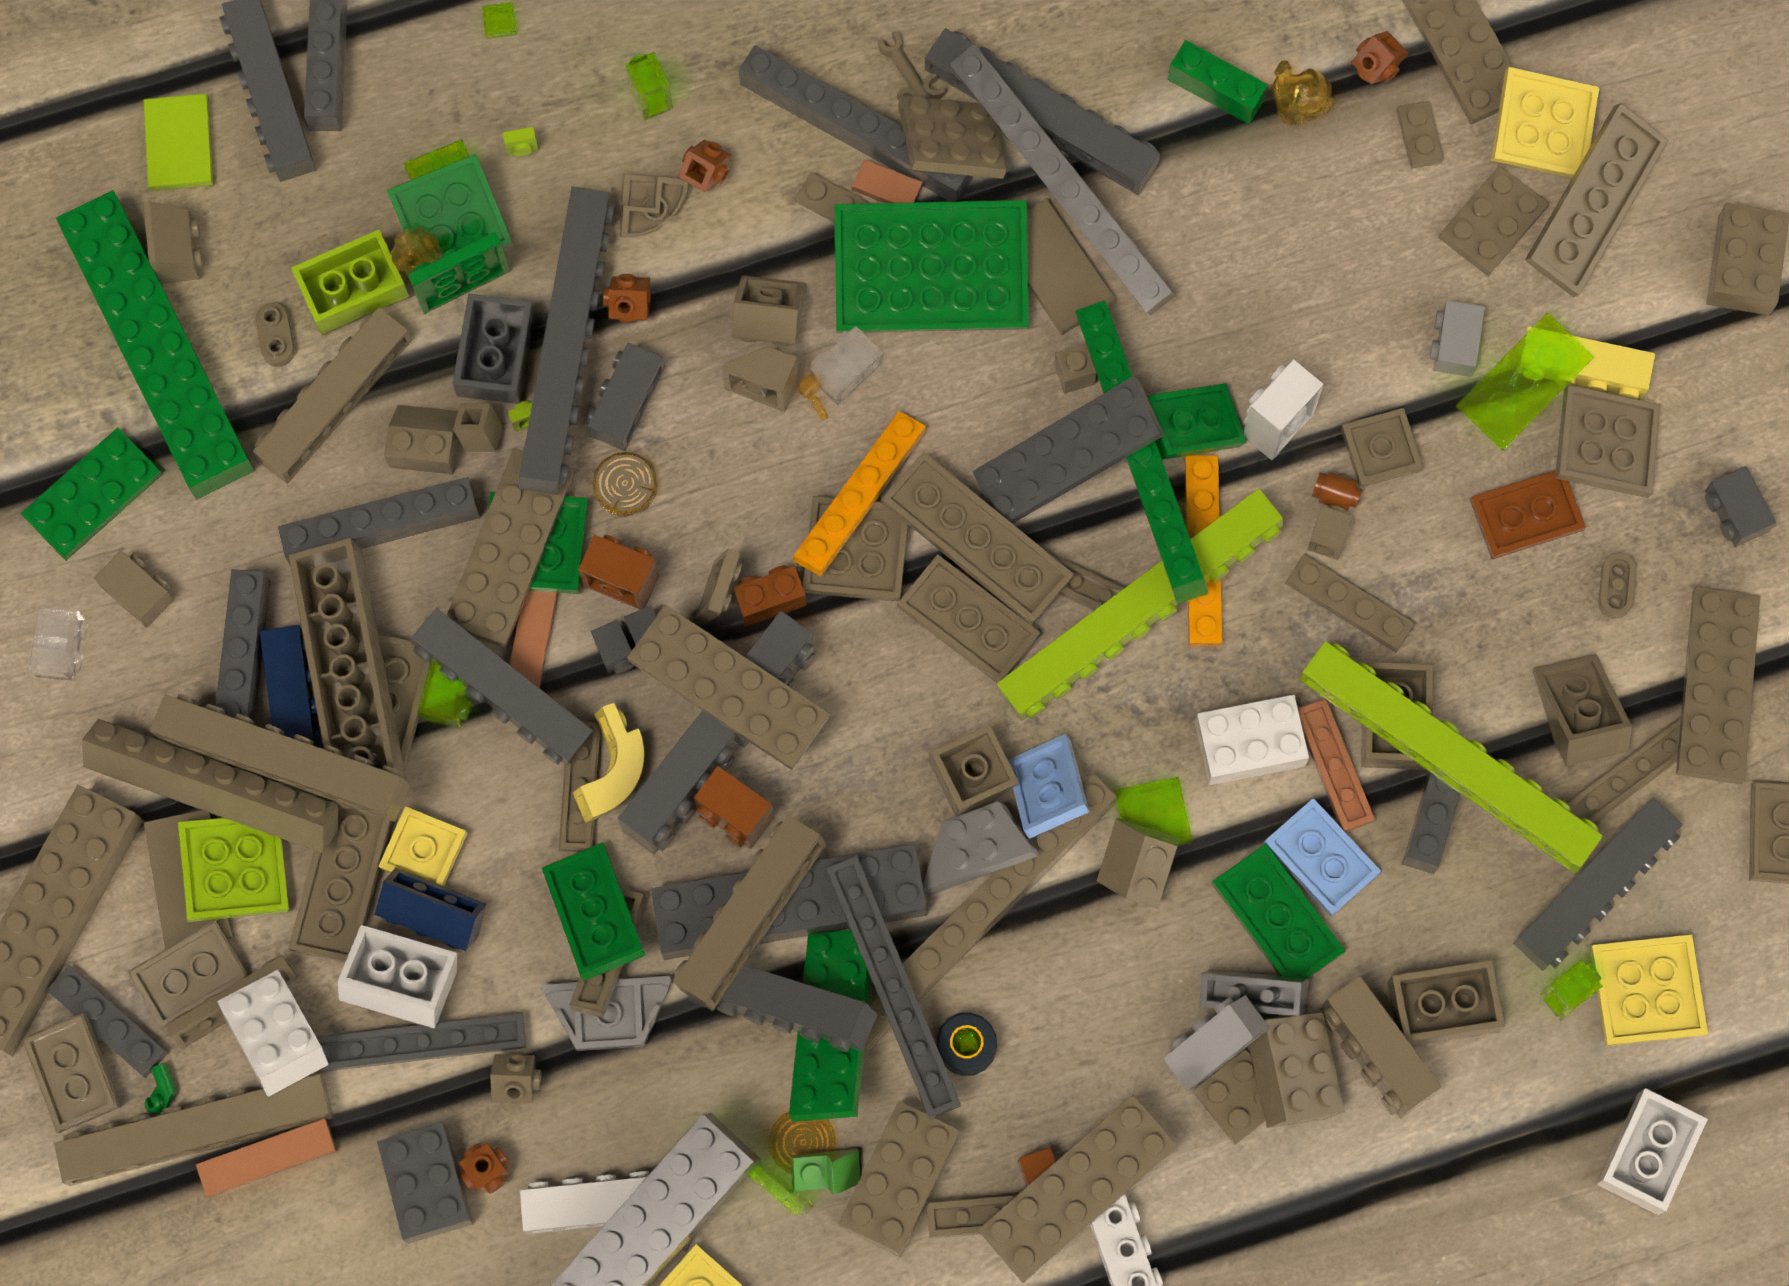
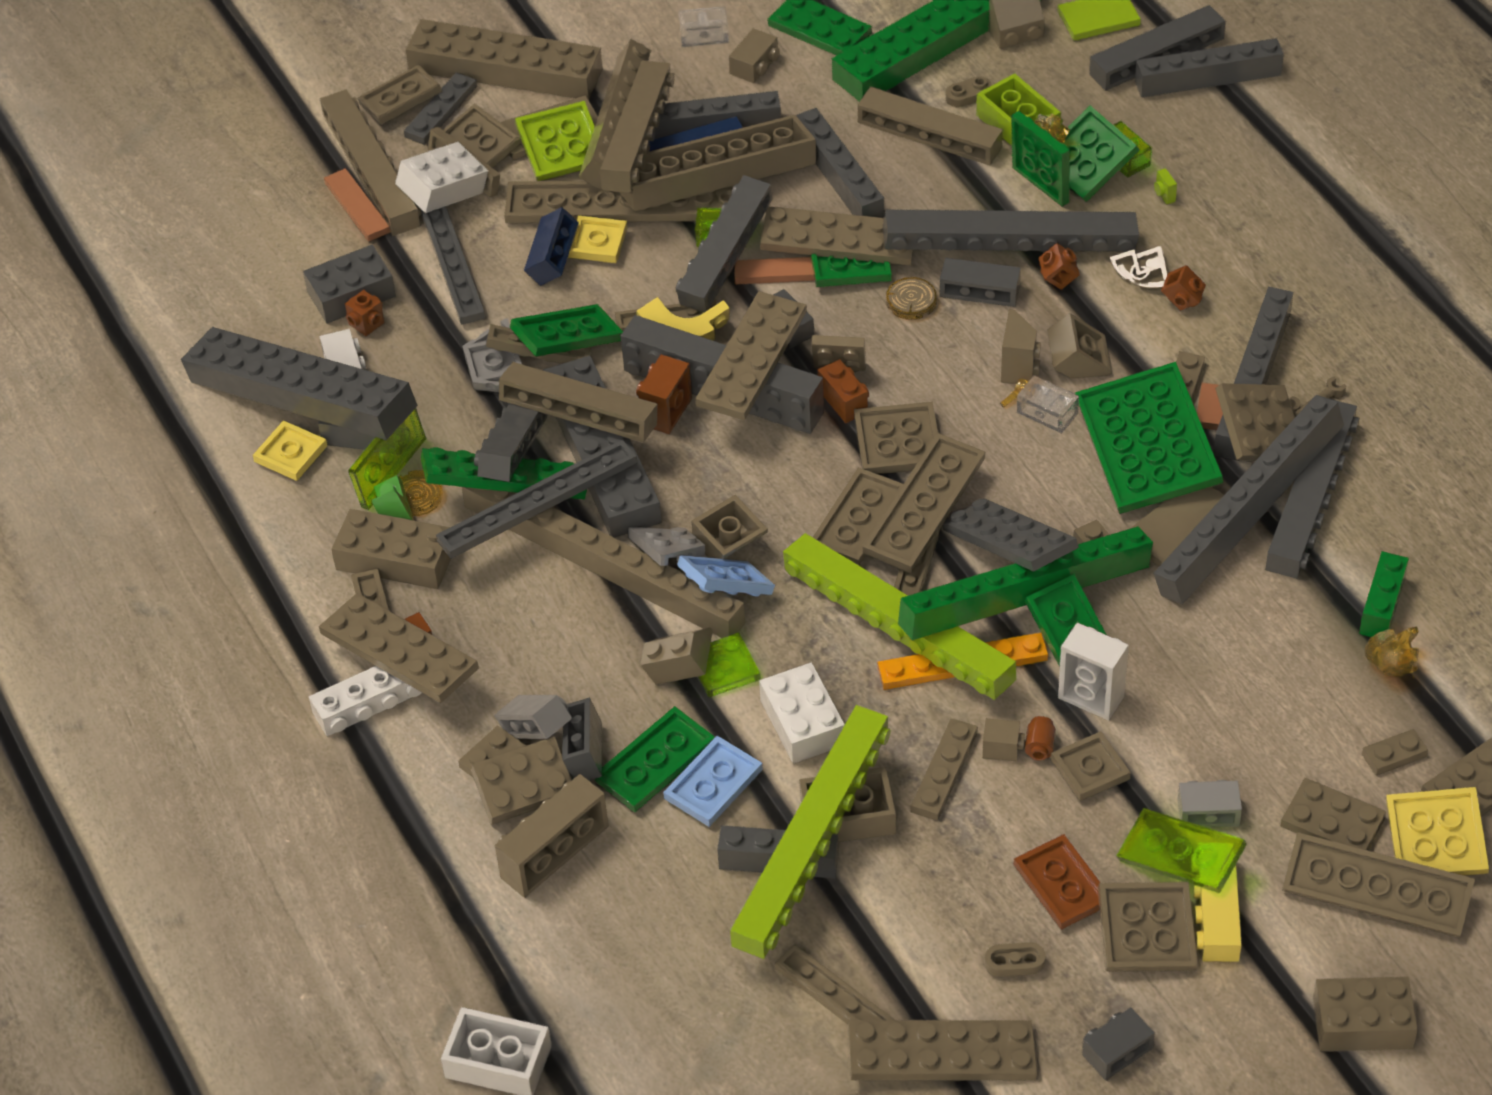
camera: 80 degrees right, 25 degrees down
(163, 1092) = (397, 145): green arm -> none
(397, 976) = (496, 235): white brick -> none
(422, 440) = (911, 179): dark tan slope -> none
(477, 427) = (927, 196): dark tan brick -> none
(494, 348) = (992, 190): dark grey brick -> none
(499, 20) = (1262, 160): clear neon green tile -> none
(514, 1078) = (433, 314): dark tan brick -> none
(619, 571) = (835, 296): dark orange brick -> none
(648, 85) = (1235, 241): clear neon green brick -> none
(859, 493) = (933, 421): light orange plate -> none
(969, 1032) = (508, 573): black wheel -> none
(1335, 766) = (784, 781): nougat plate -> none
(1379, 58) = (1451, 701): dark orange brick -> none
(1446, 1003) = (600, 880): dark tan brick -> none
(1572, 989) = (628, 966): clear neon green brick -> none
(1582, 710) = (889, 947): dark tan slope -> none
(1598, 884) = (733, 983): dark grey brick -> none
(1649, 990) = (645, 1037): light yellow plate -> none

